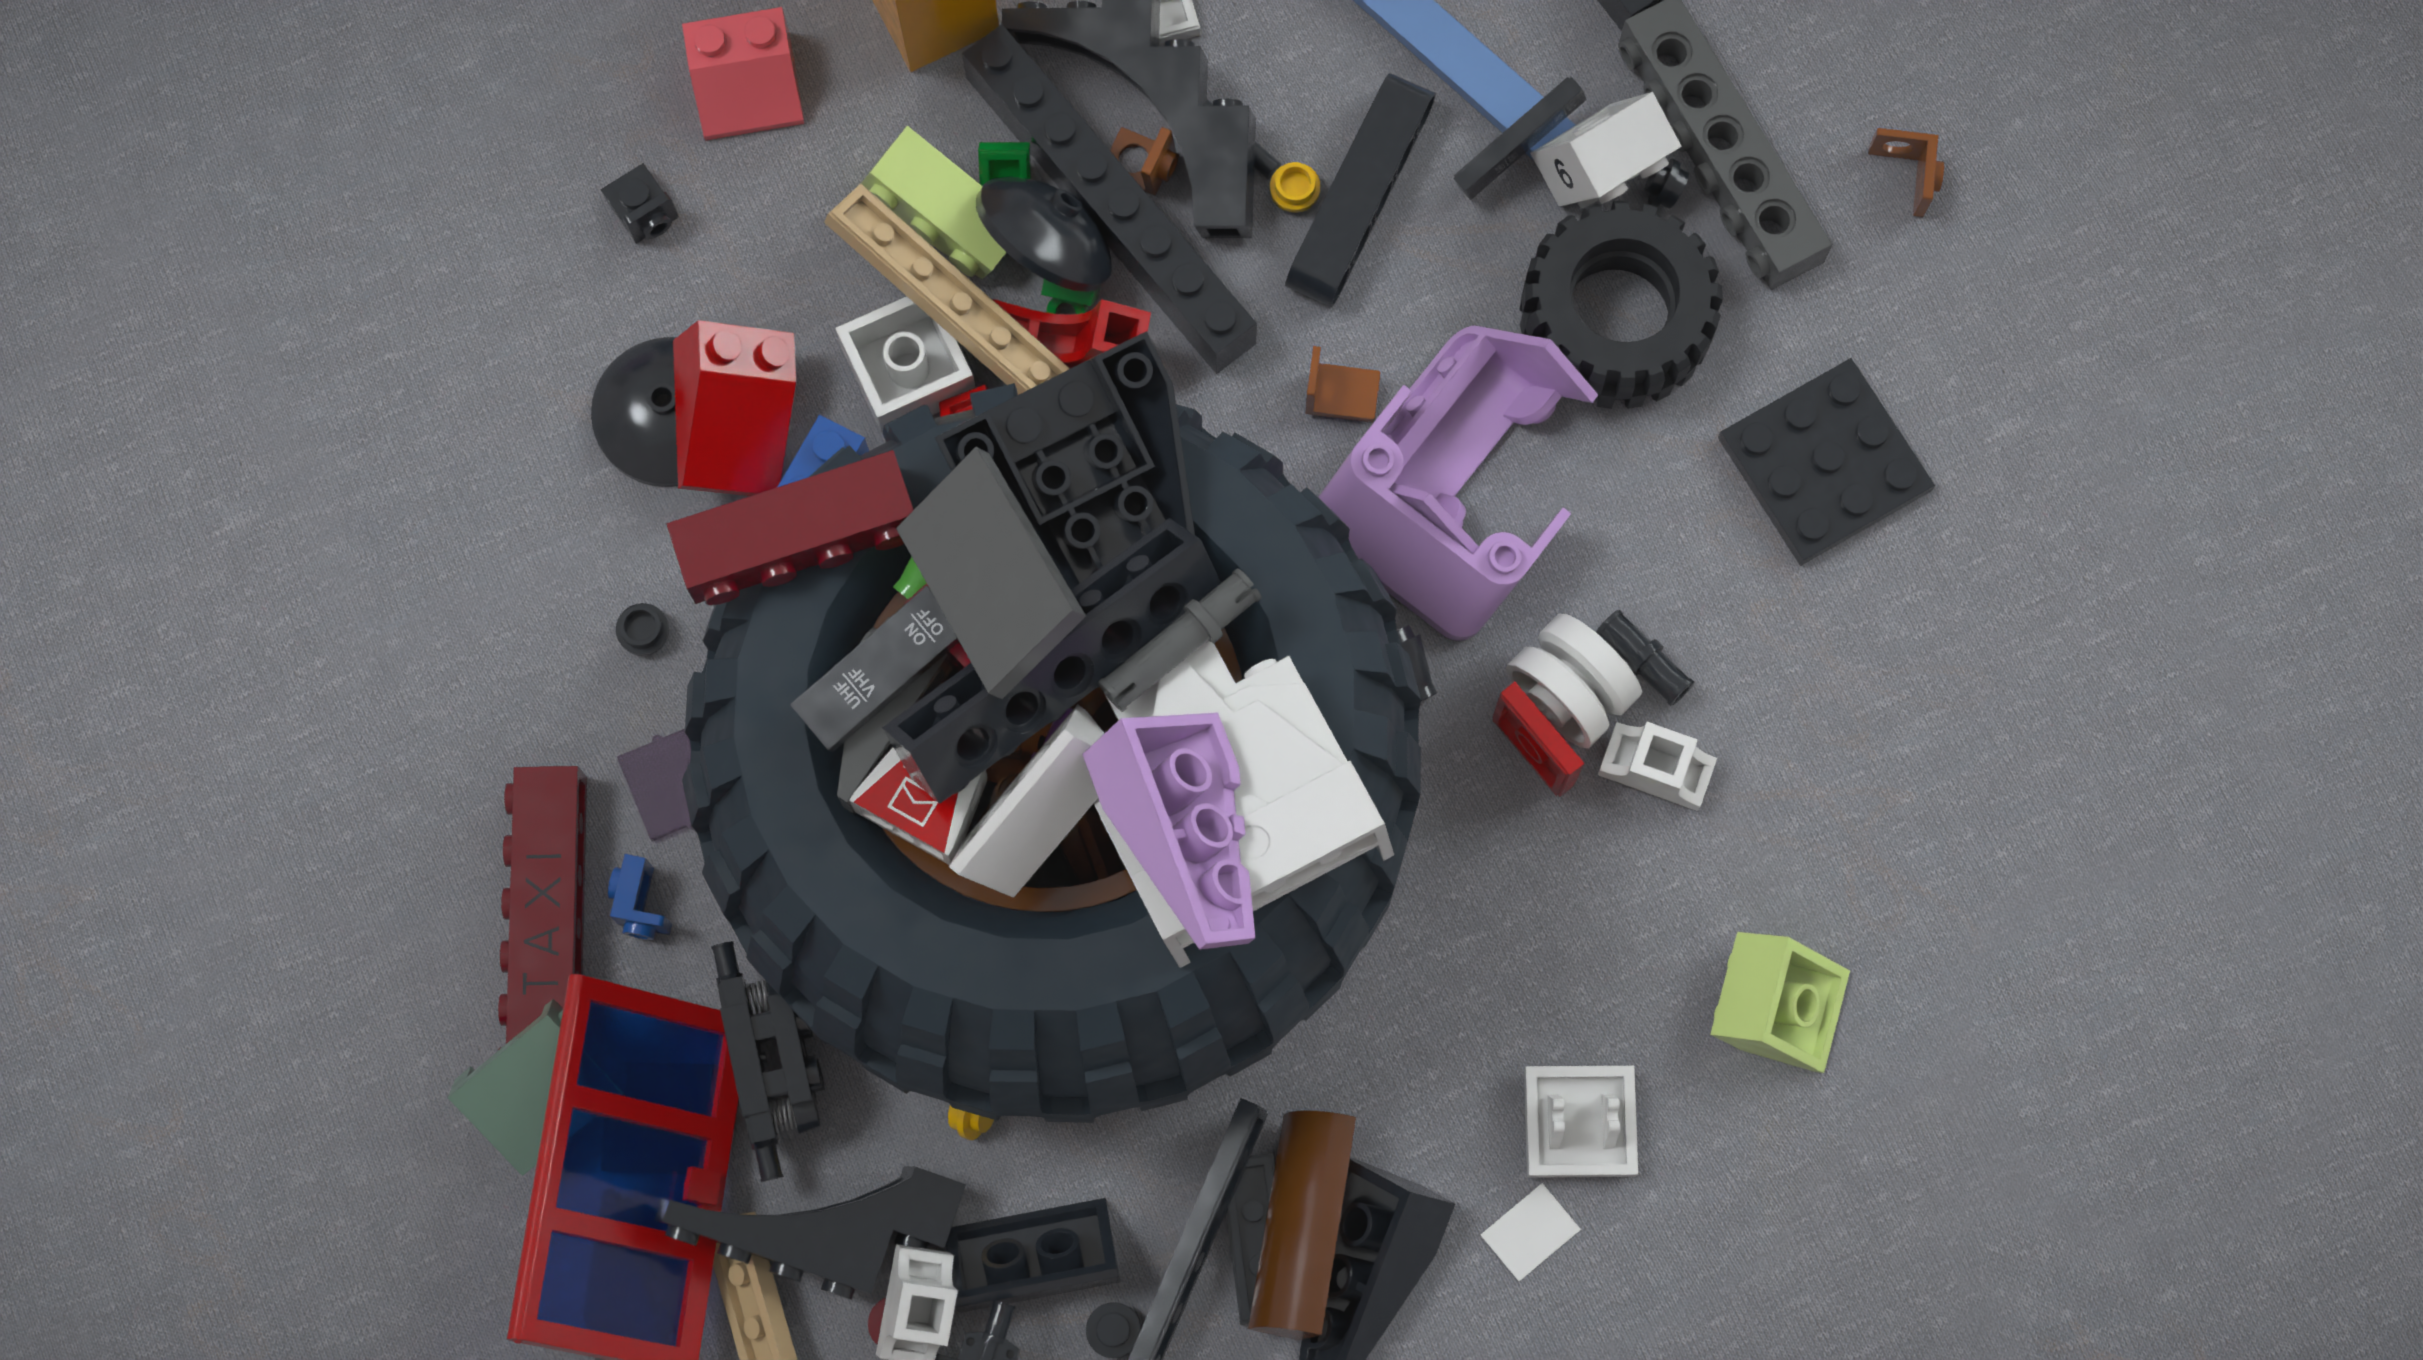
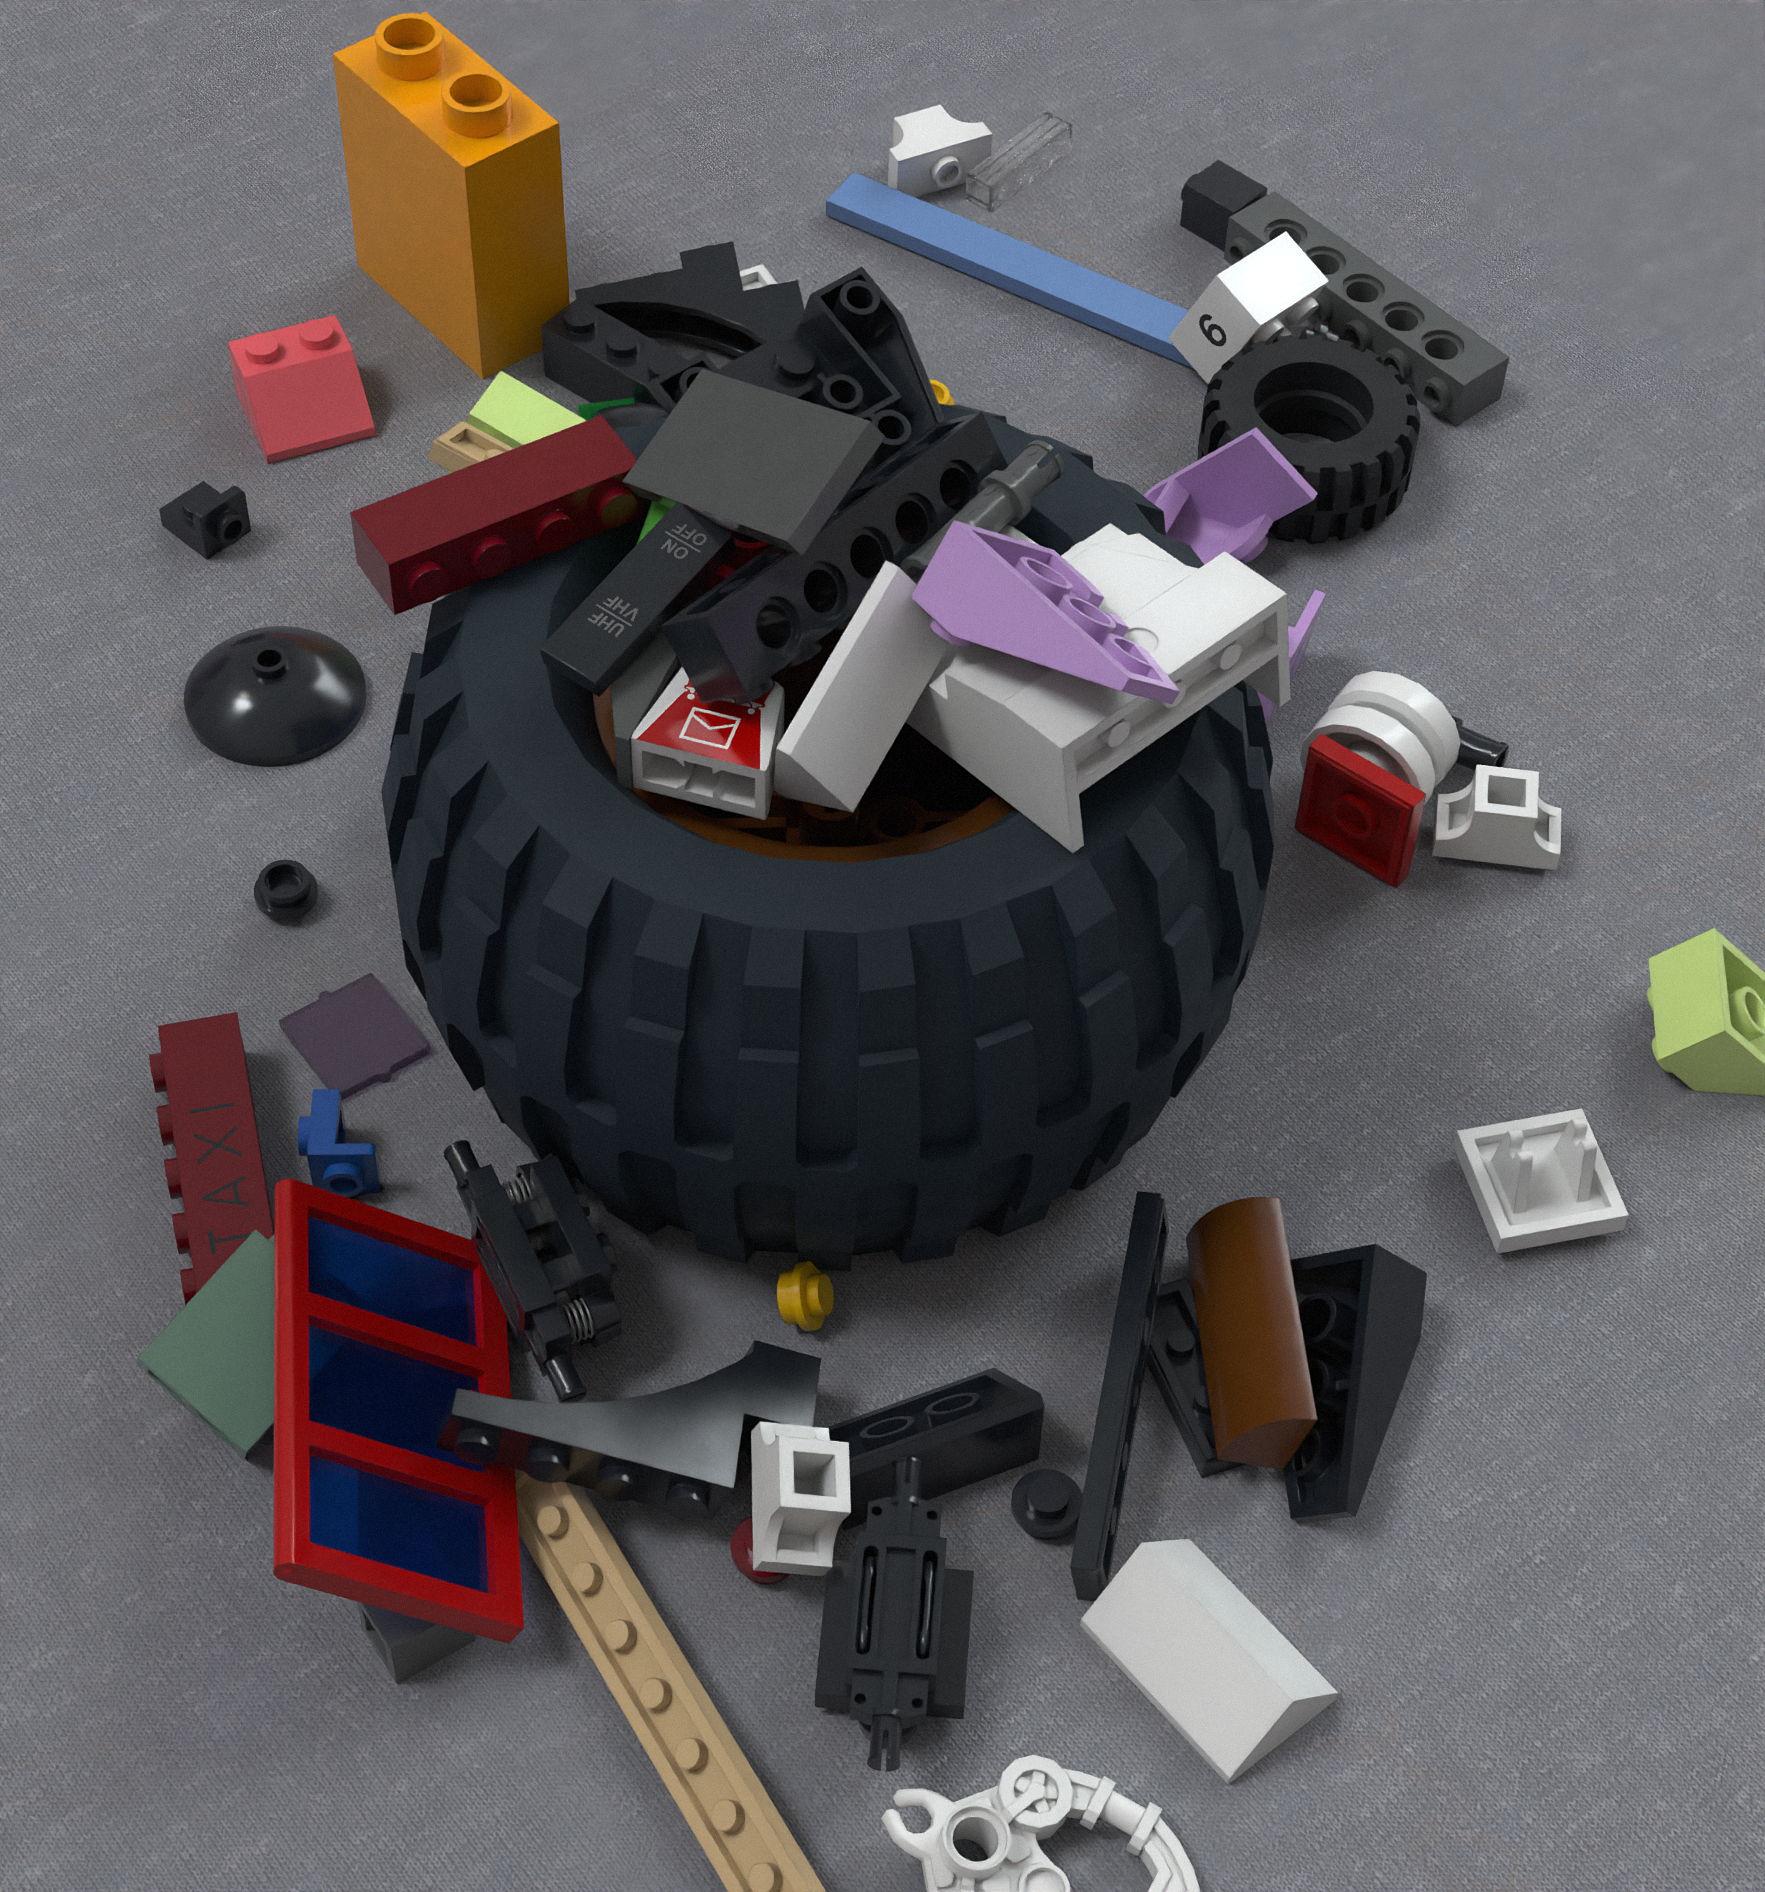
camera: 15 degrees left, 25 degrees down
(732, 406) = (345, 652): red slope -> none
(1360, 190) = (1009, 358): black beam -> none
(1520, 137) = (1153, 322): black tile -> none
(1530, 1232) = (1520, 1314): white sticker -> none
(1826, 461) = (1570, 551): black plate -> none
(1921, 148) = (1568, 292): dark orange bracket -> none

